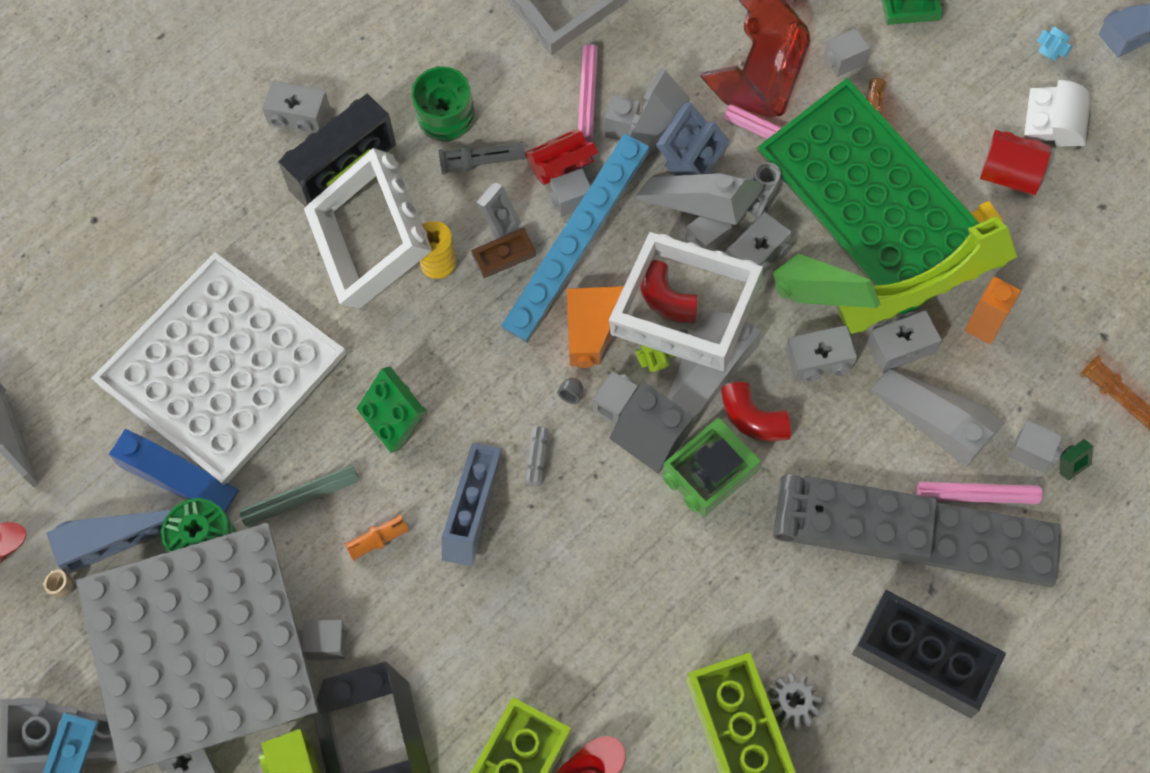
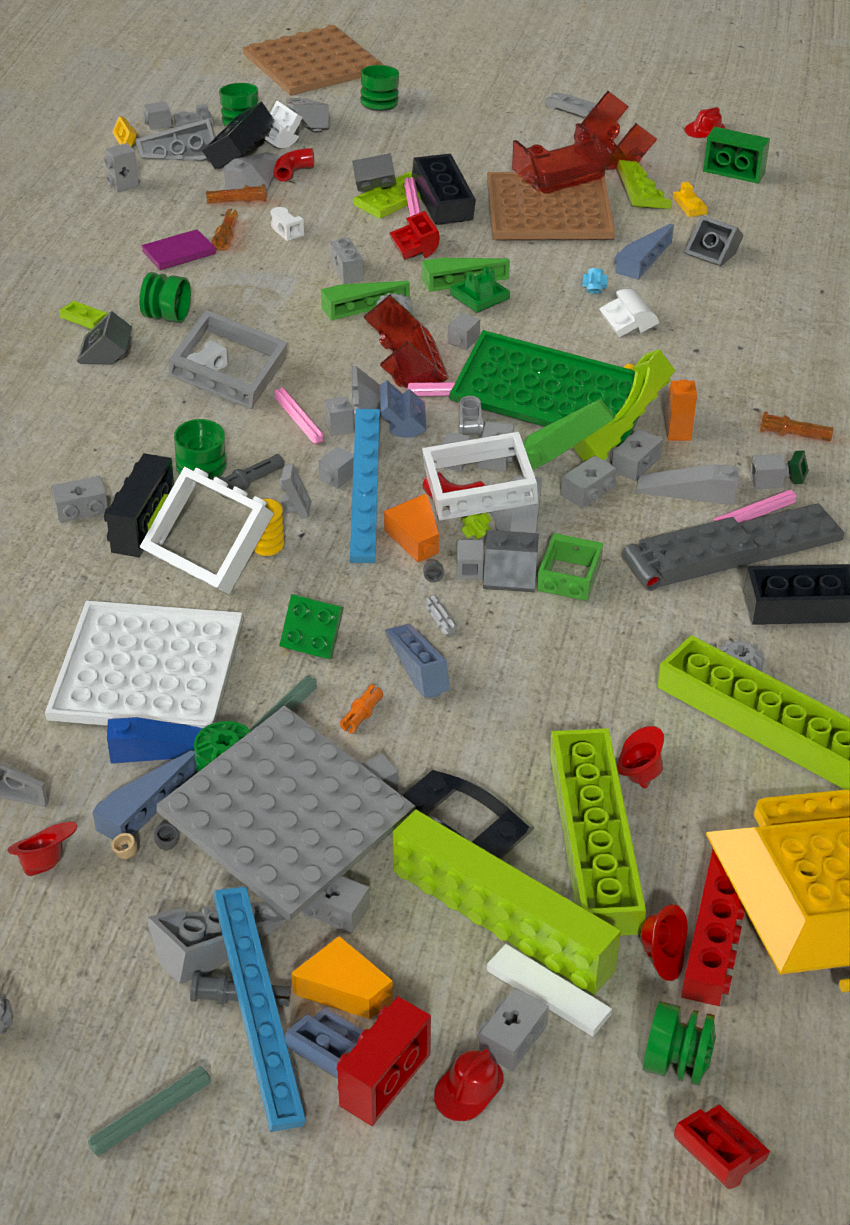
camera: 35 degrees left, 25 degrees down
(503, 253) = (315, 518): reddish brown plate -> none
(561, 156) = (312, 449): red brick -> none
(704, 195) = (443, 421): light grey wedge -> none
(715, 465) = (577, 550): black brick -> none
(750, 419) = (591, 529): red cylinder -> none
(1015, 162) = (624, 343): red brick -> none

